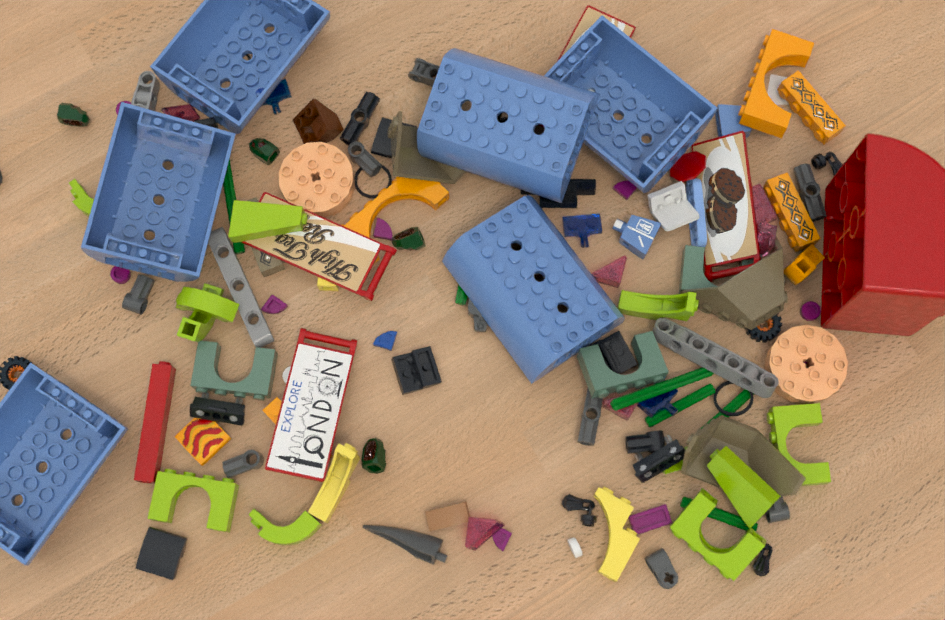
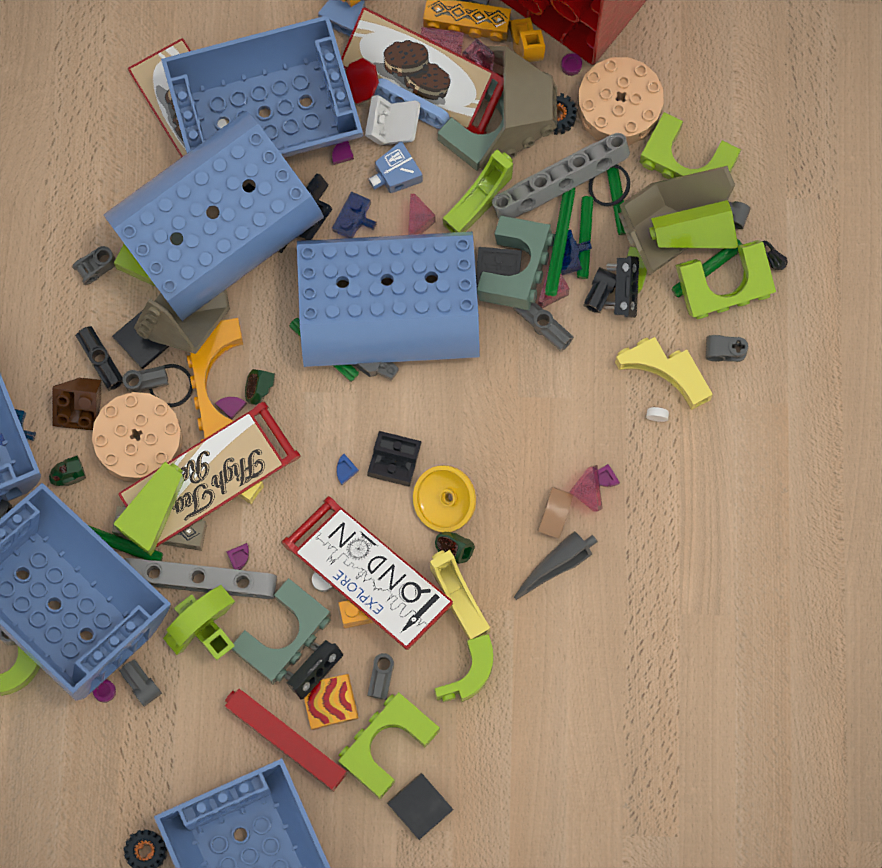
camera: 60 degrees left, 0 degrees up
(399, 420) = (432, 499): none -> yellow dish
(573, 503) = (615, 391): black piece -> none
(650, 519) = (674, 331): magenta tile -> none

